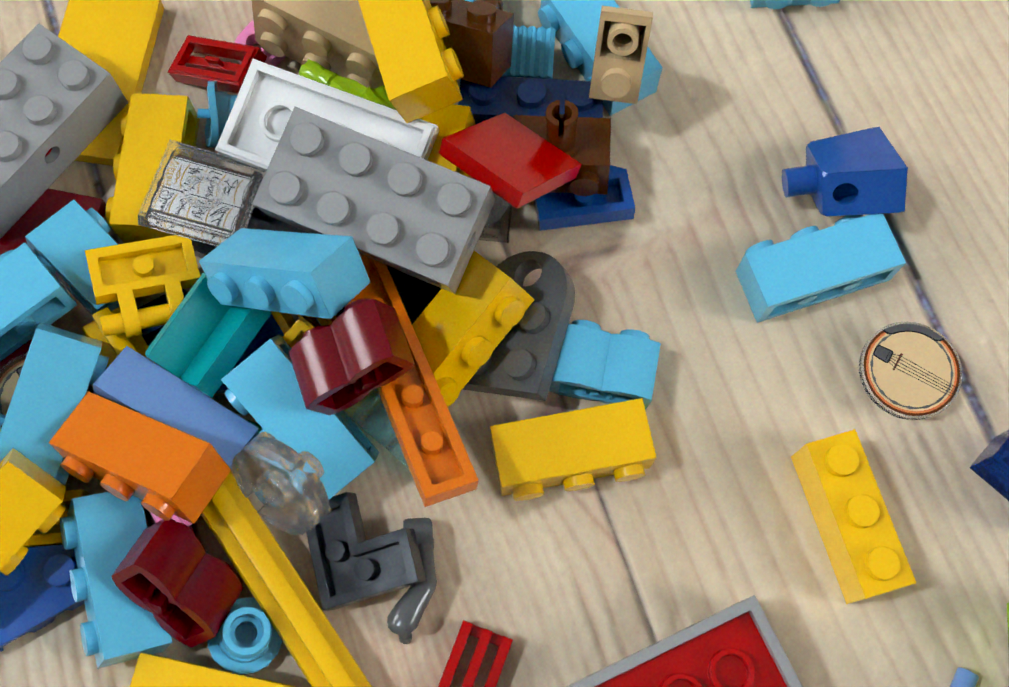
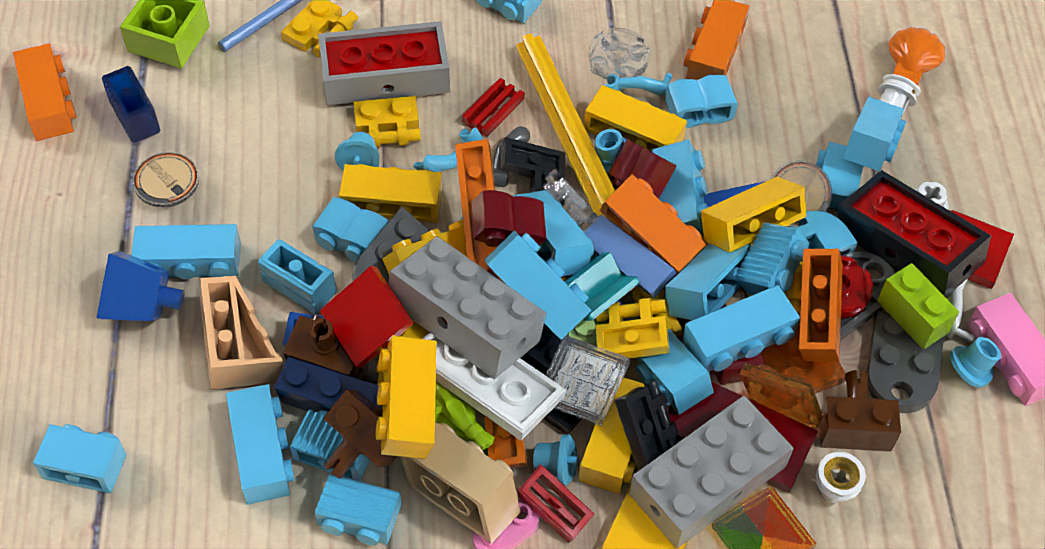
camera: 165 degrees left, 15 degrees down
(107, 154) = (647, 422): none -> black plate
(518, 533) = (445, 162): none -> medium azure piece
(620, 54) = (259, 374): tan slope -> none
(639, 609) = (388, 115): none -> yellow plate
(647, 258) = (297, 276): none -> medium azure brick
(647, 506) = (357, 150): none -> medium azure piece
(691, 151) = (233, 337): none -> light nougat wedge
(852, 517) = (245, 118): yellow brick -> none

